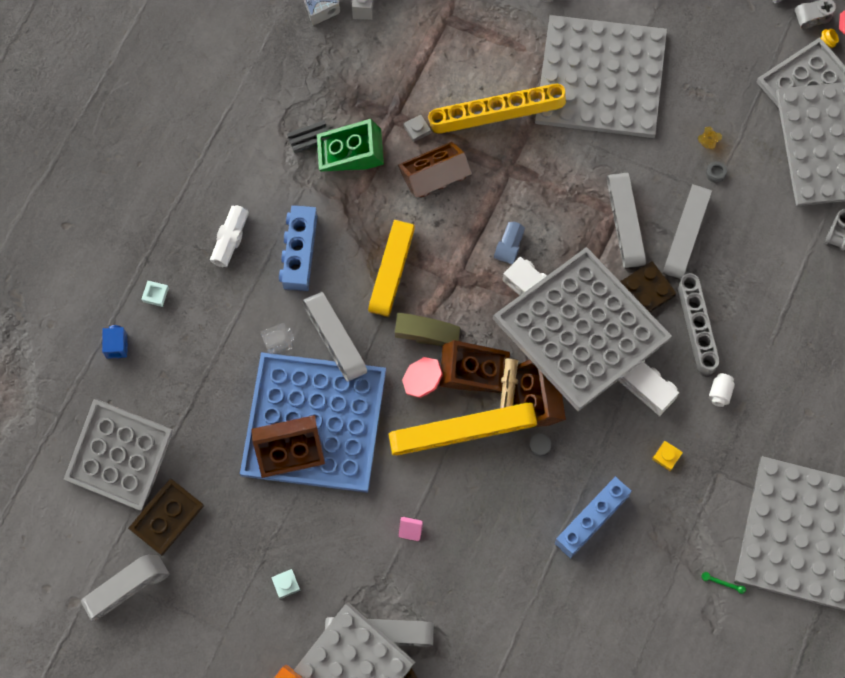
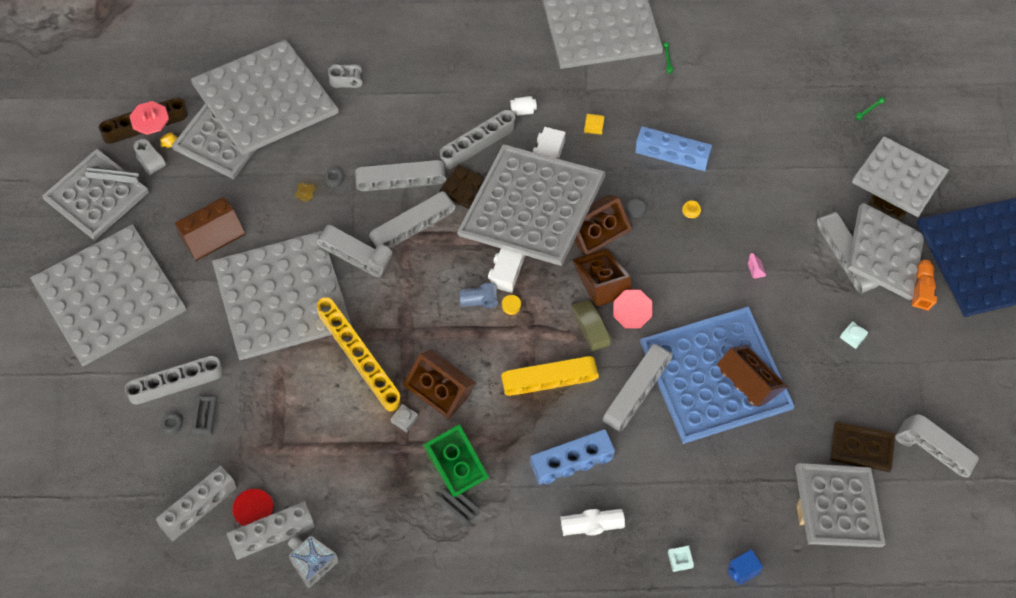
camera: 120 degrees left, 10 degrees down
(277, 339) = (664, 434): clear brick -> none
(462, 429) = (660, 260): yellow beam -> none
(488, 271) = (511, 304): none -> yellow tile
(509, 381) = (606, 244): tan pin -> none
(511, 500) = (691, 209): none -> yellow plate
(613, 150) = (354, 251): none -> light grey beam
(703, 38) = (209, 228): none -> reddish brown slope

